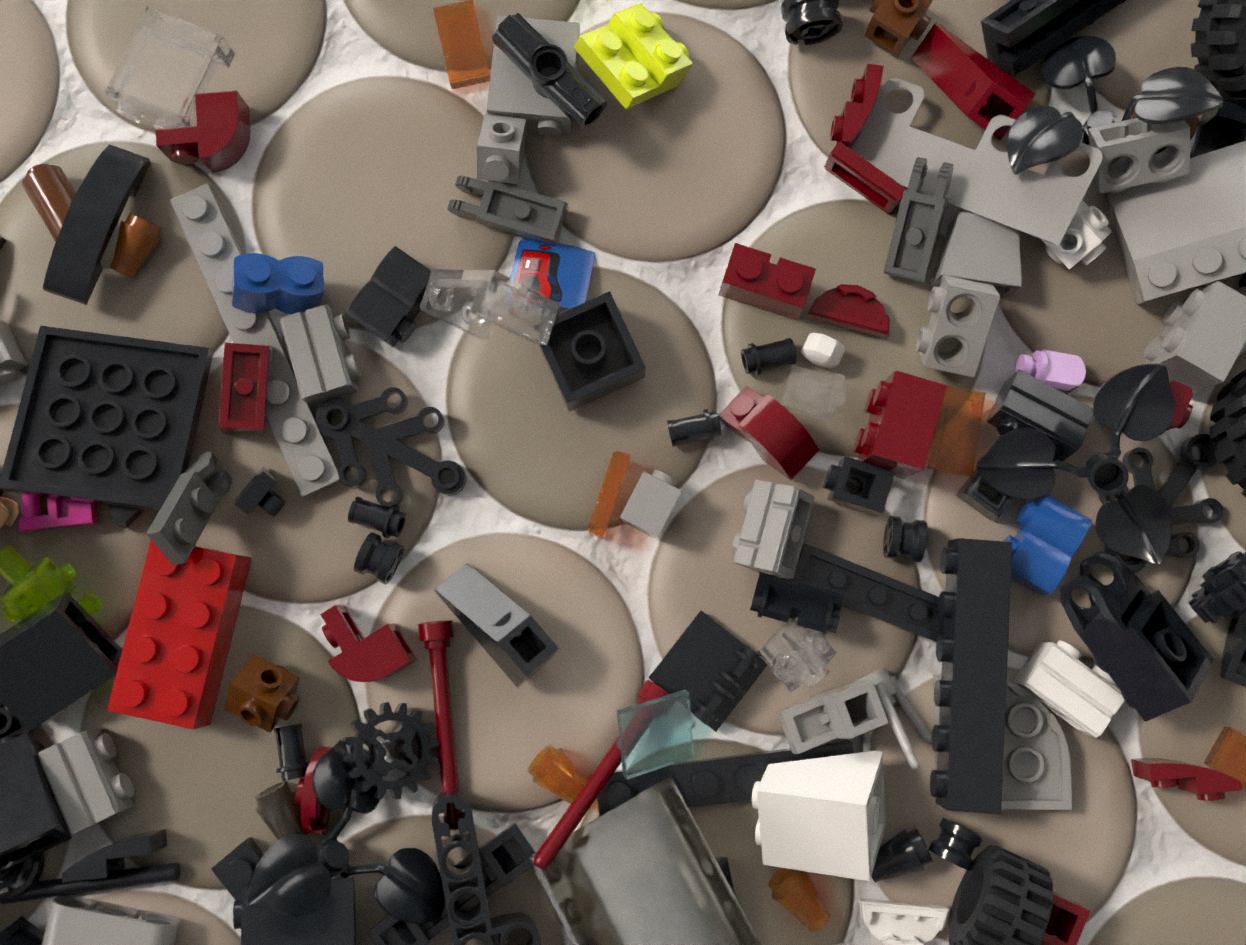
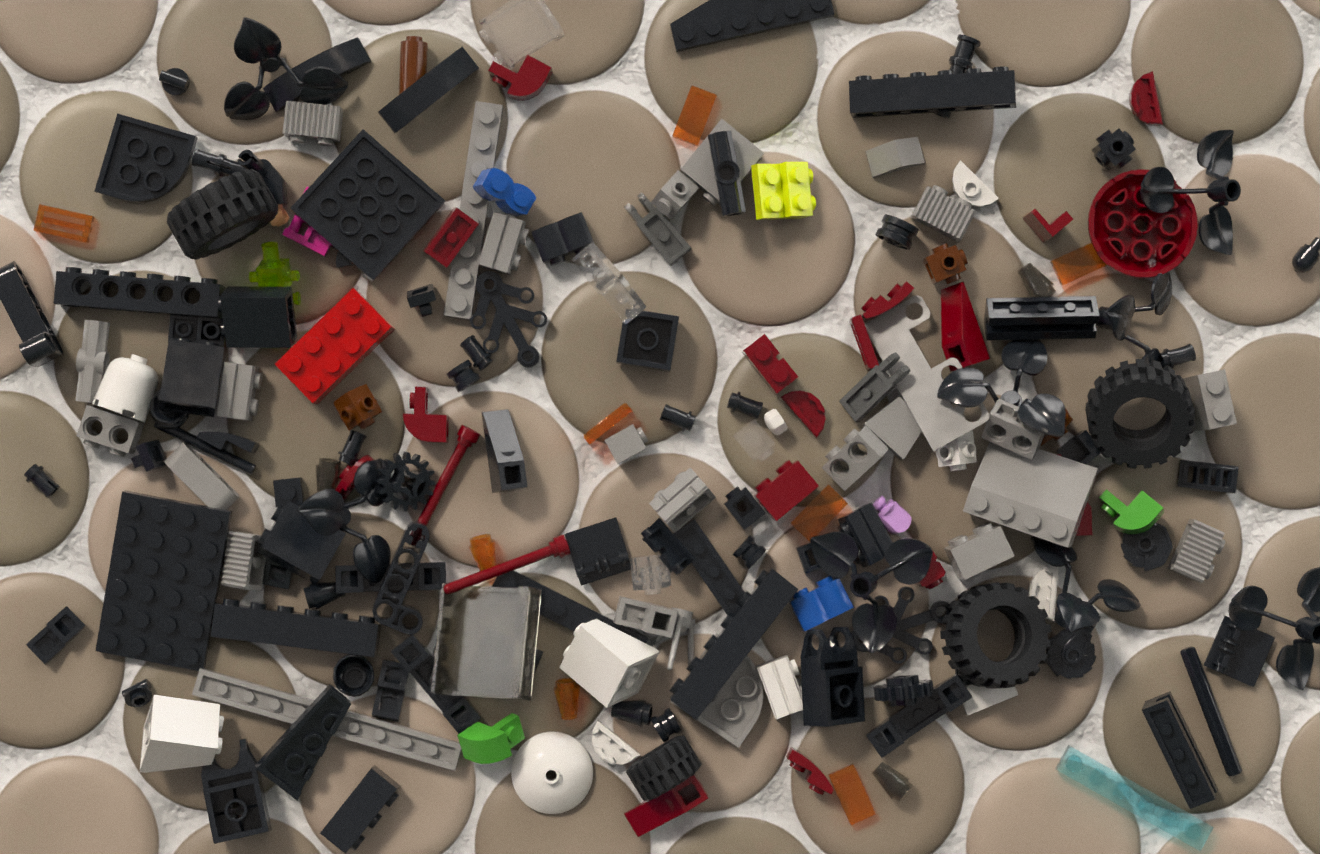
camera: 30 degrees right, 5 degrees up
(134, 244) = (440, 114): dark orange cone -> none
(188, 508) = (383, 284): dark grey hinge -> none
(554, 271) = (657, 281): sticker -> none
(655, 734) = (548, 565): clear light blue piece -> none
(771, 431) = (716, 446): dark red brick -> none

